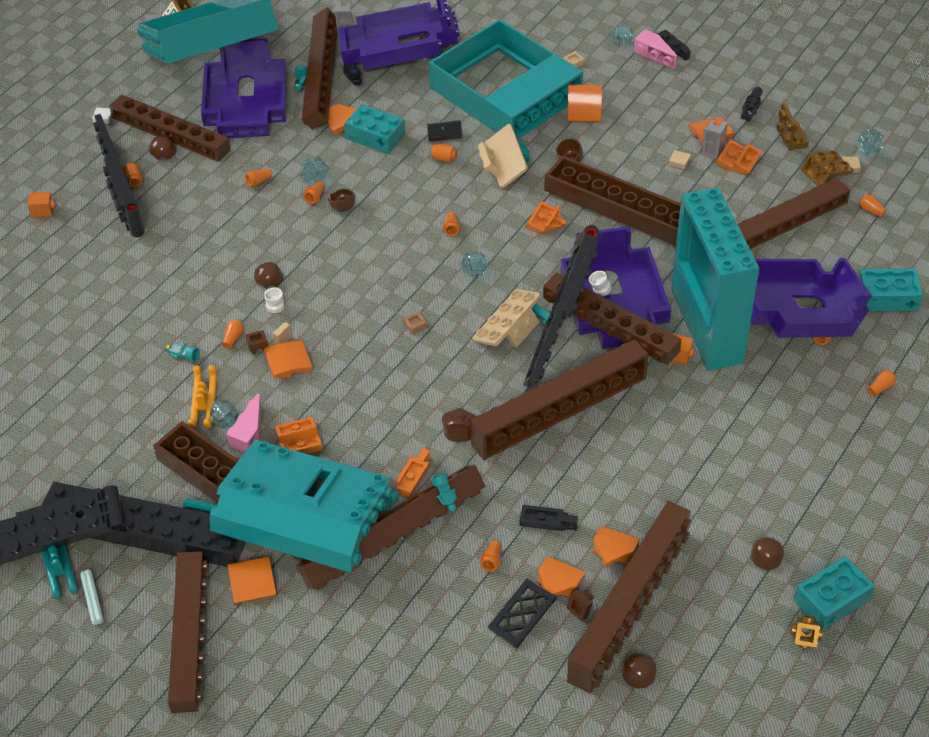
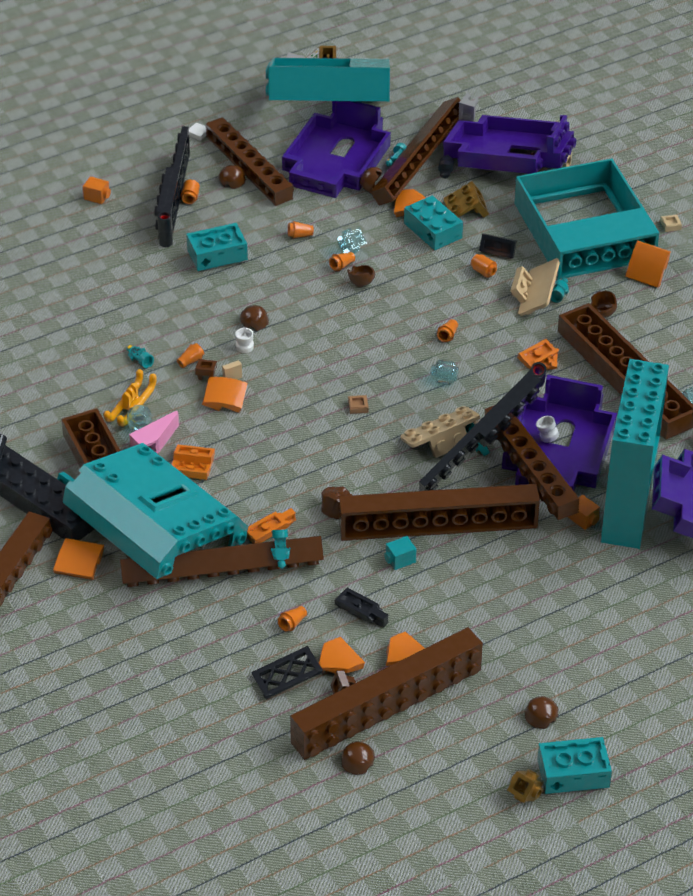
camera: 25 degrees right, 5 degrees down
(193, 219) = (217, 246): none -> teal piece
(293, 107) = (369, 178): none -> reddish brown hair
(390, 99) = (466, 199): none -> pearl gold bracket
(548, 451) = (400, 553): none -> teal brick

